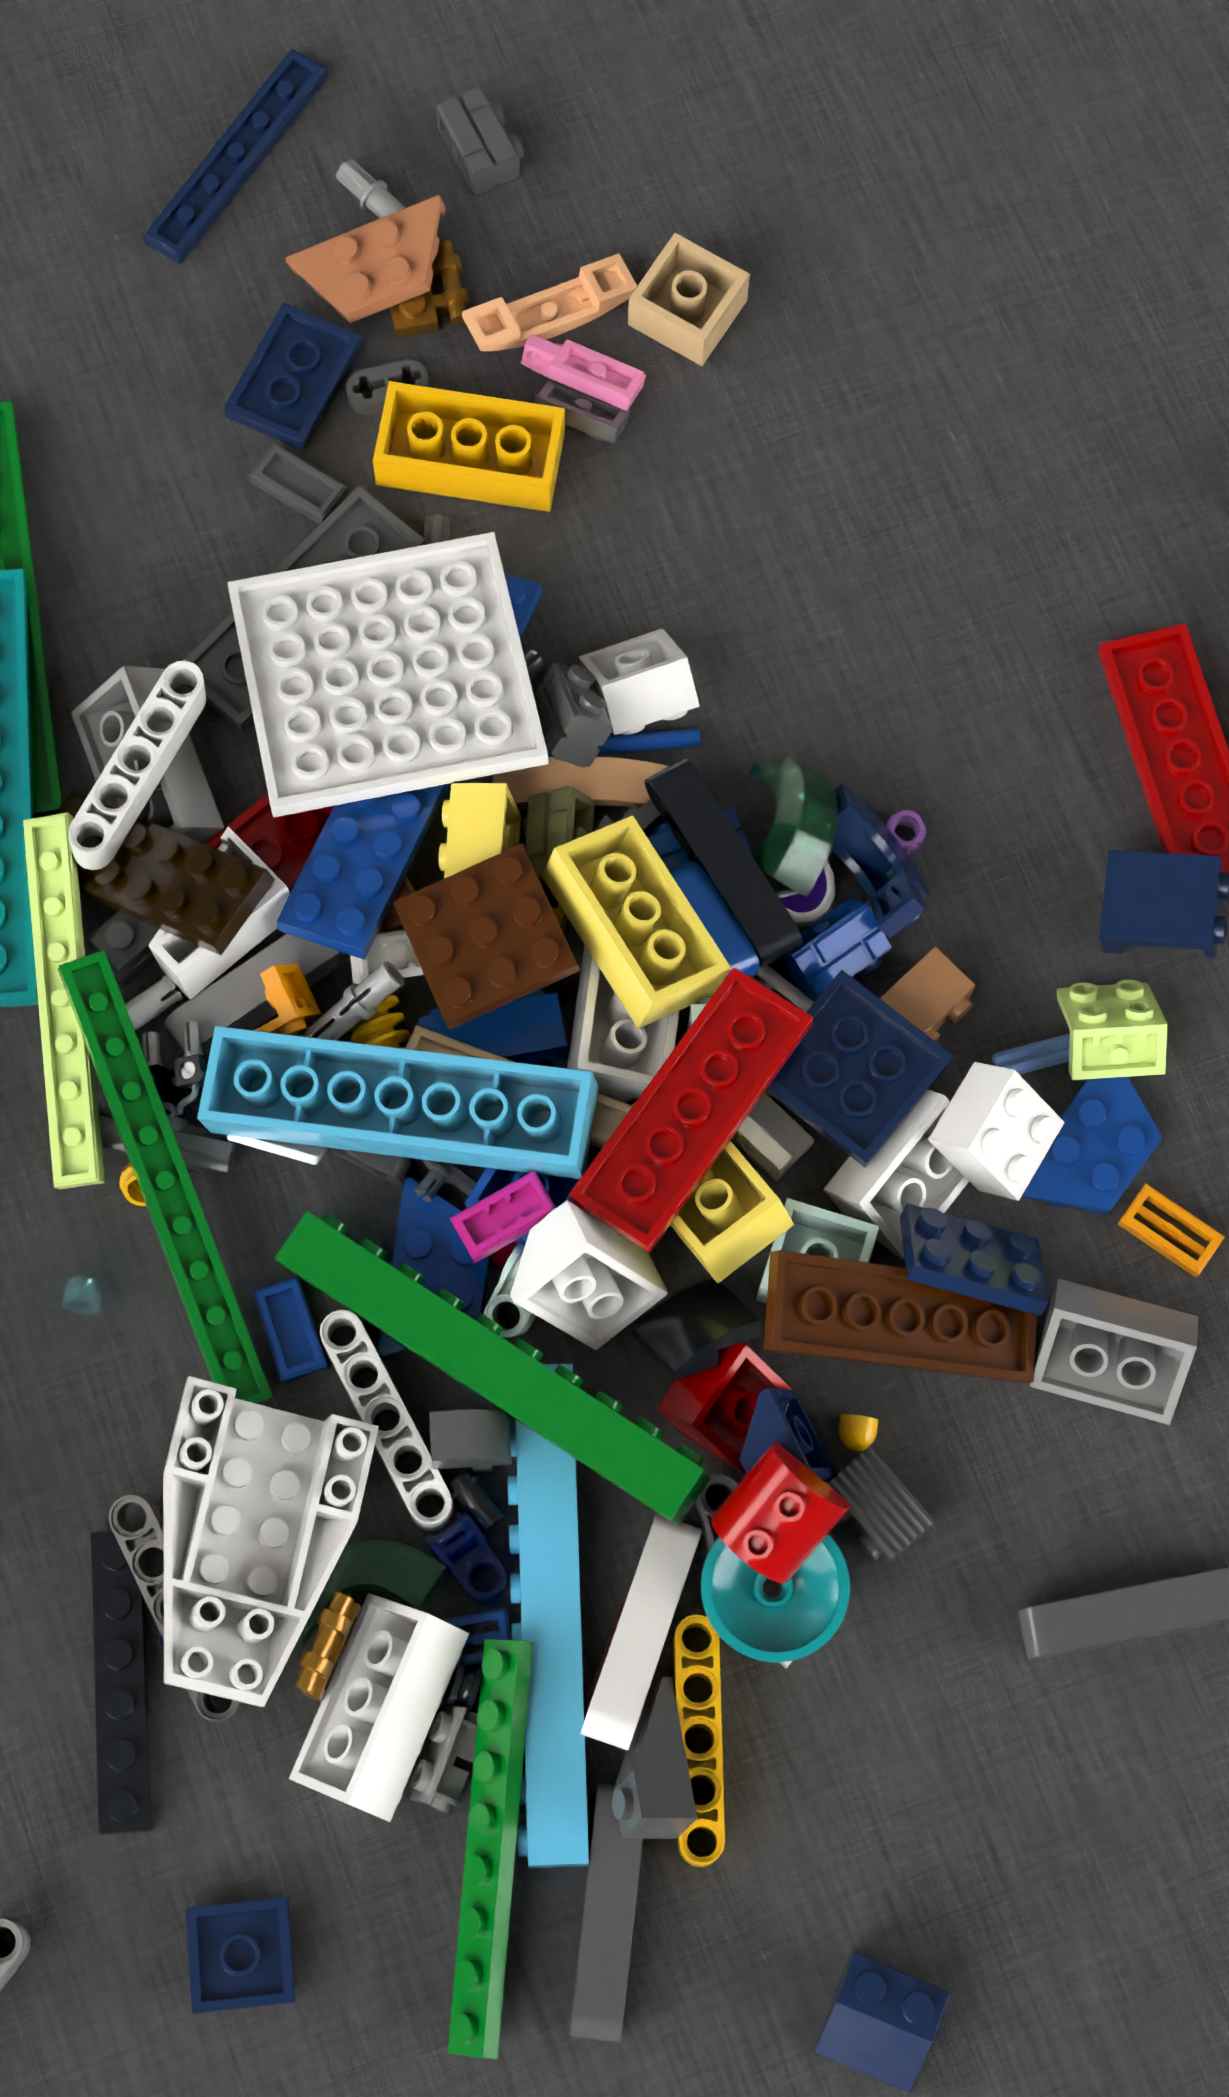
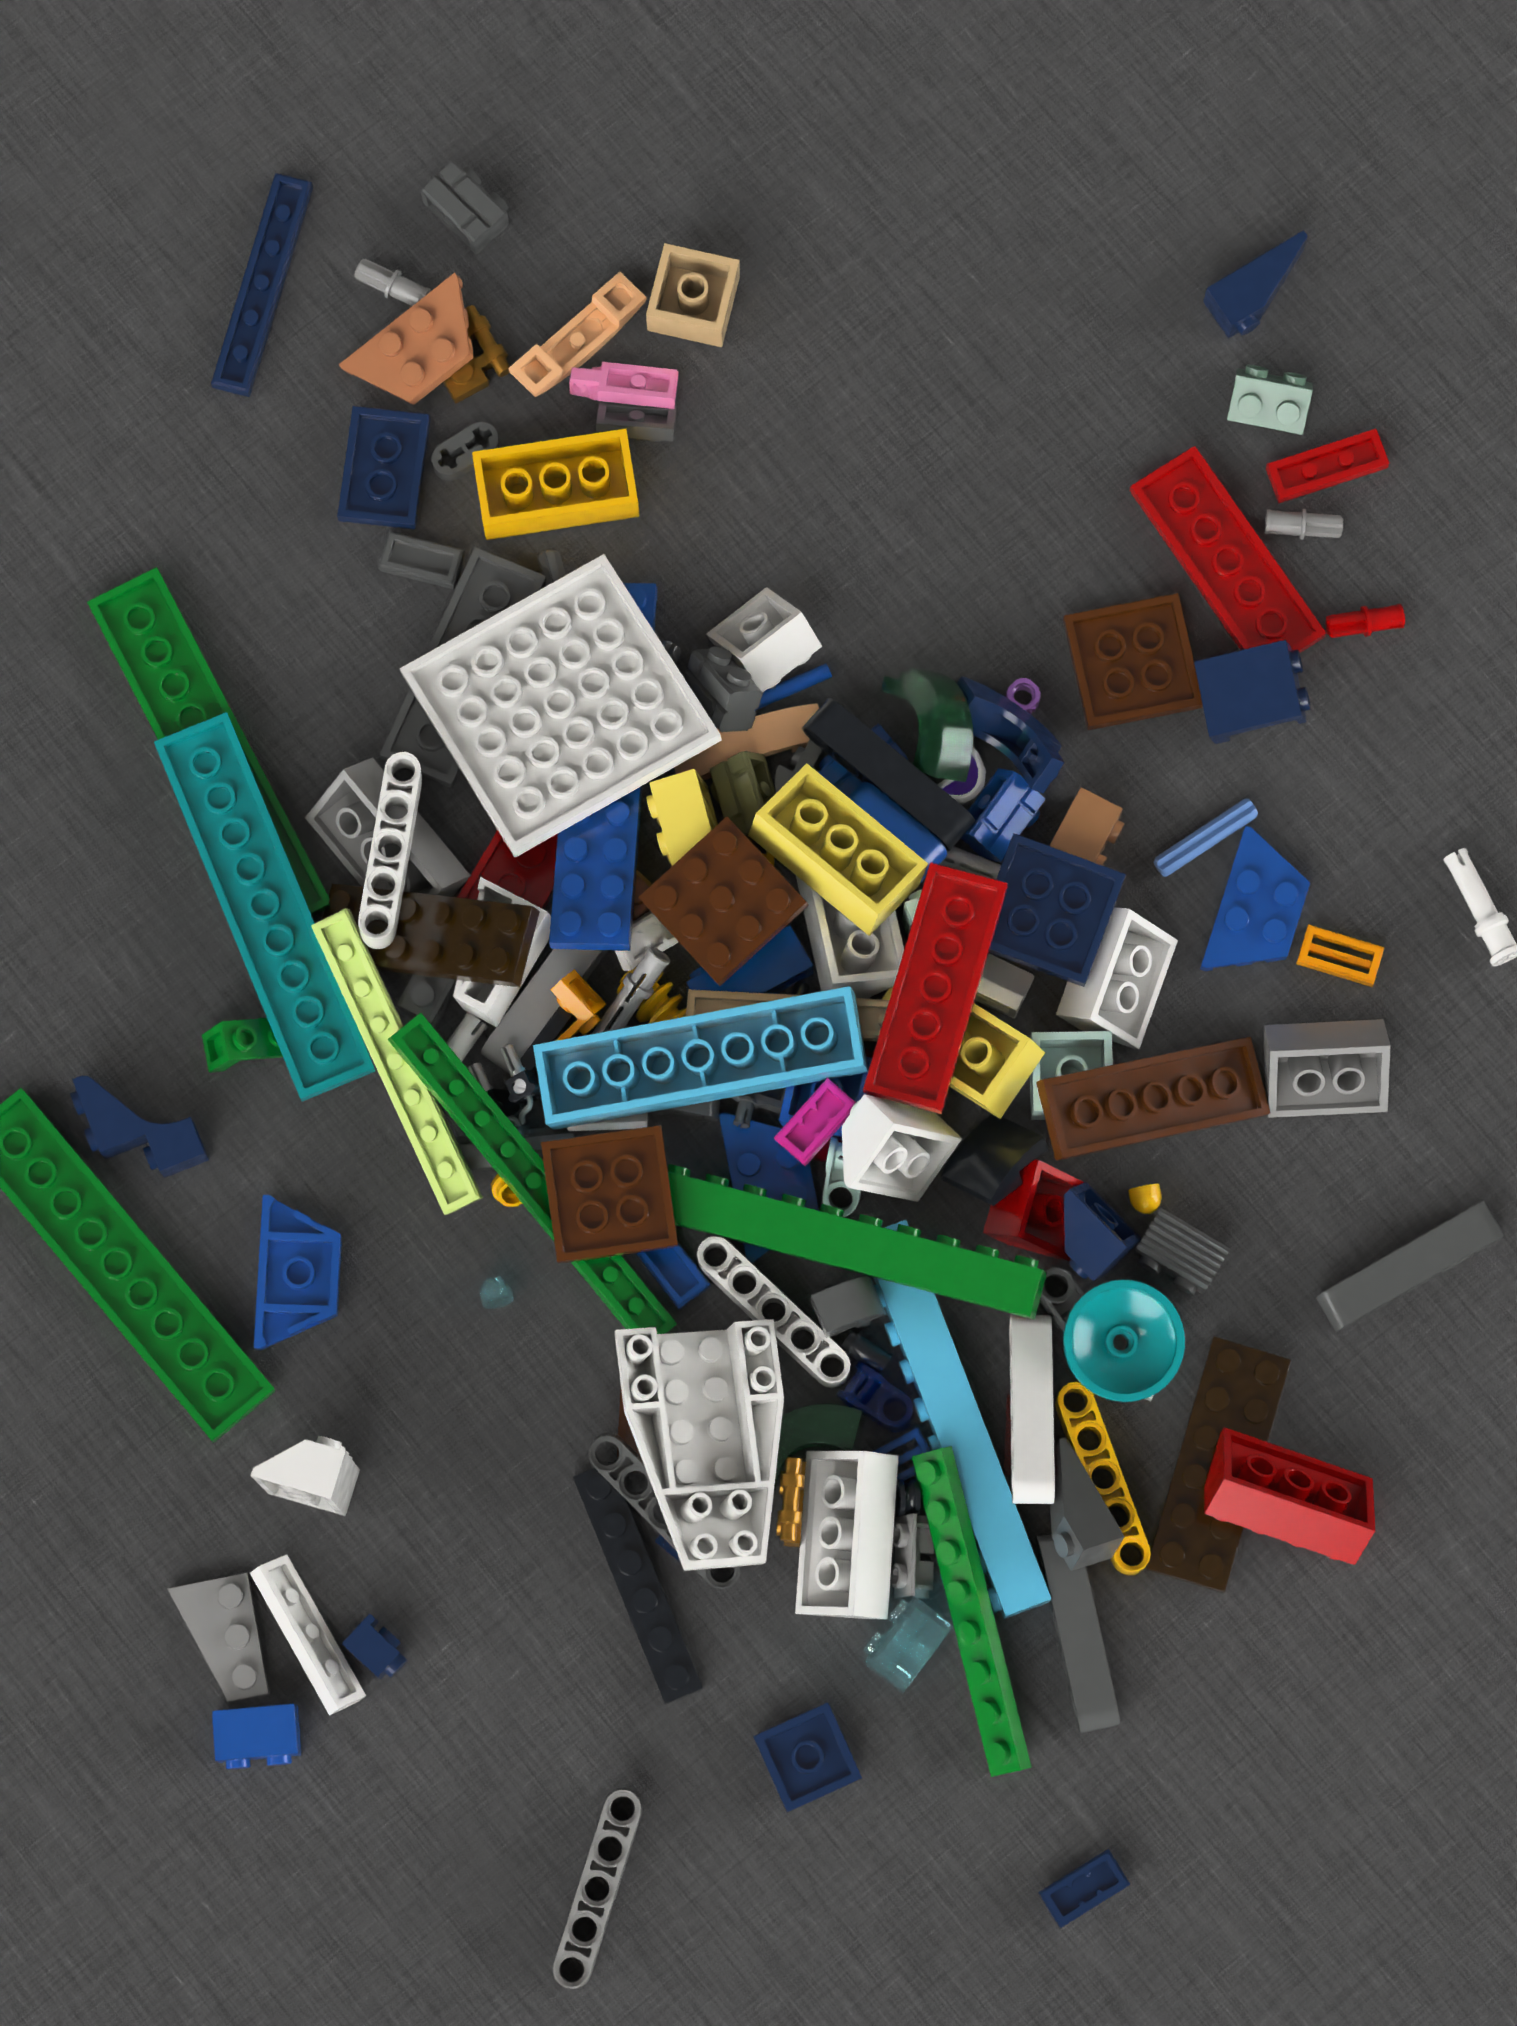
camera: 15 degrees left, 5 degrees up
(242, 1222) = (609, 1194): none -> reddish brown plate
(403, 1859) = (907, 1644): none -> clear light blue brick
(778, 1514) = (1109, 1285): red brick -> none
(839, 1771) = (1237, 1392): none -> dark brown plate
(881, 2022) = (1312, 1642): dark blue slope -> none
(911, 1837) = (1290, 1496): none -> red slope
(973, 1259) = (1193, 1032): dark blue plate -> none
(996, 1130) = (1178, 922): white brick -> none
(1040, 832) = (1132, 661): none -> reddish brown plate
(1114, 1030) = (1244, 807): yellowish green bracket -> none

